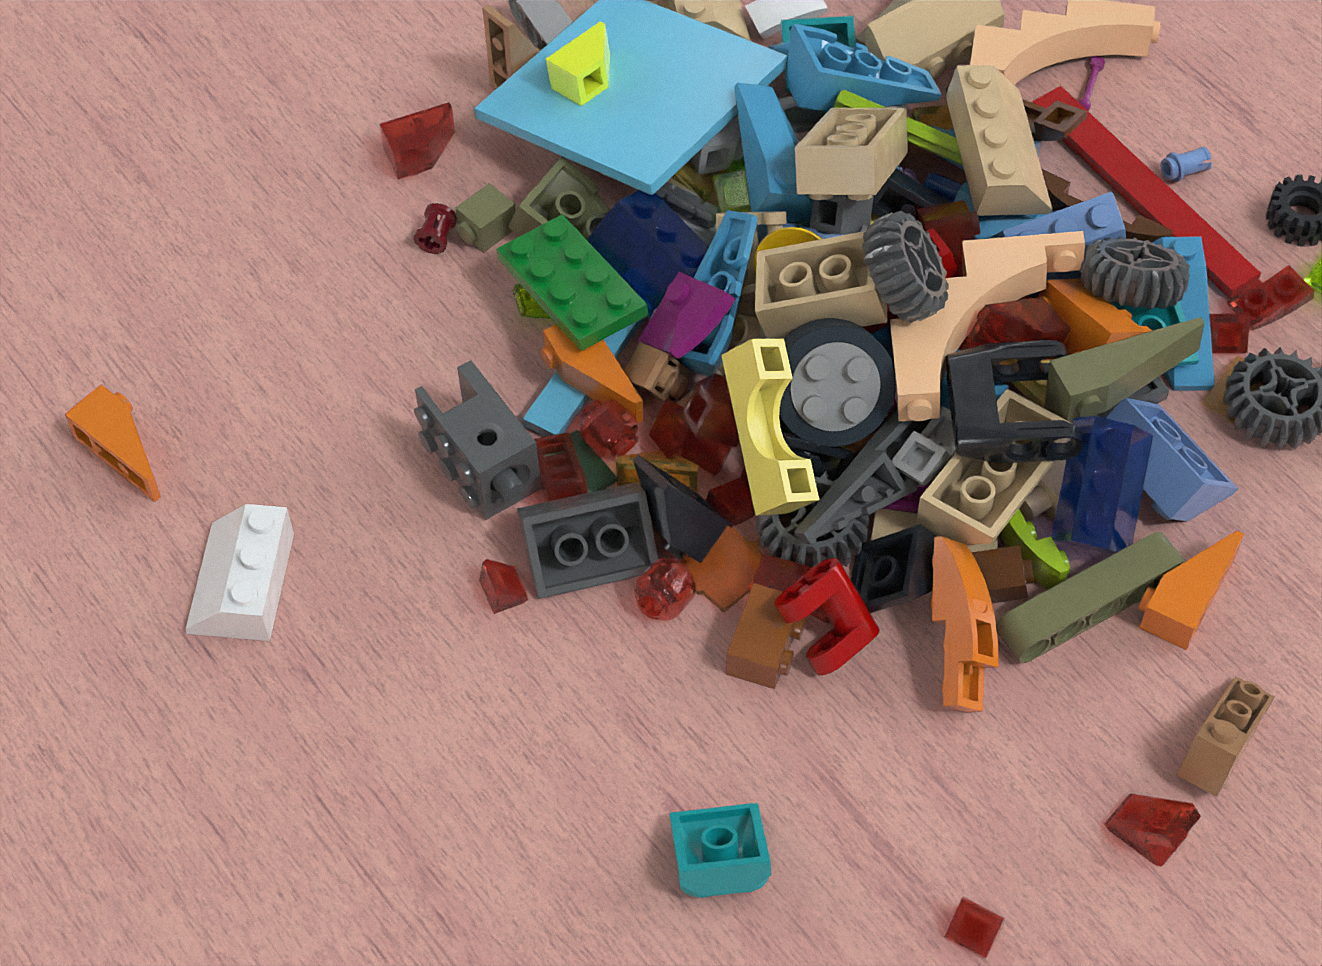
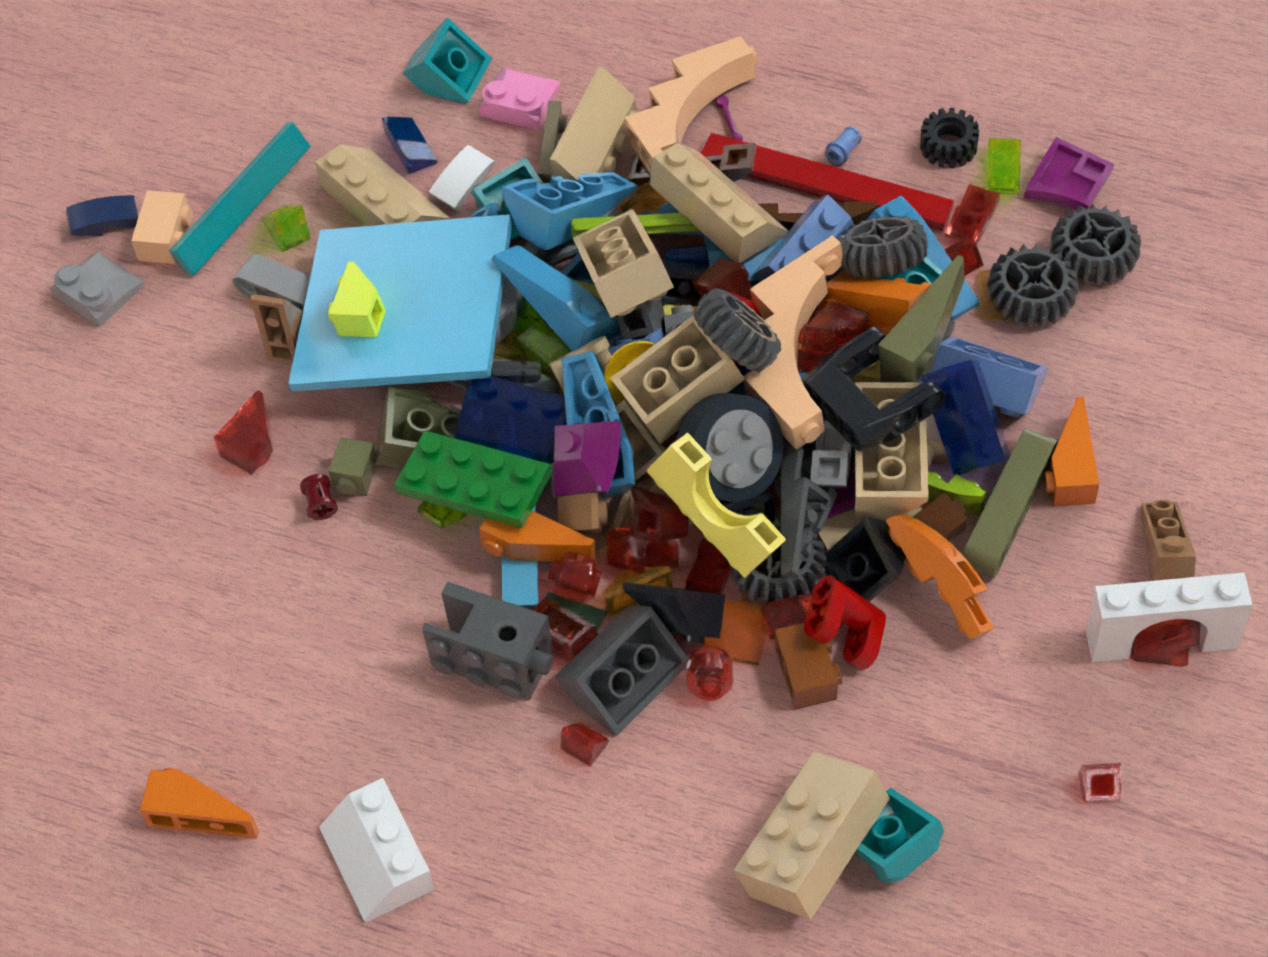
camera: 30 degrees left, 0 degrees up
(639, 798) = (812, 834): none -> tan brick
(1214, 808) = (1125, 609): none -> white arch

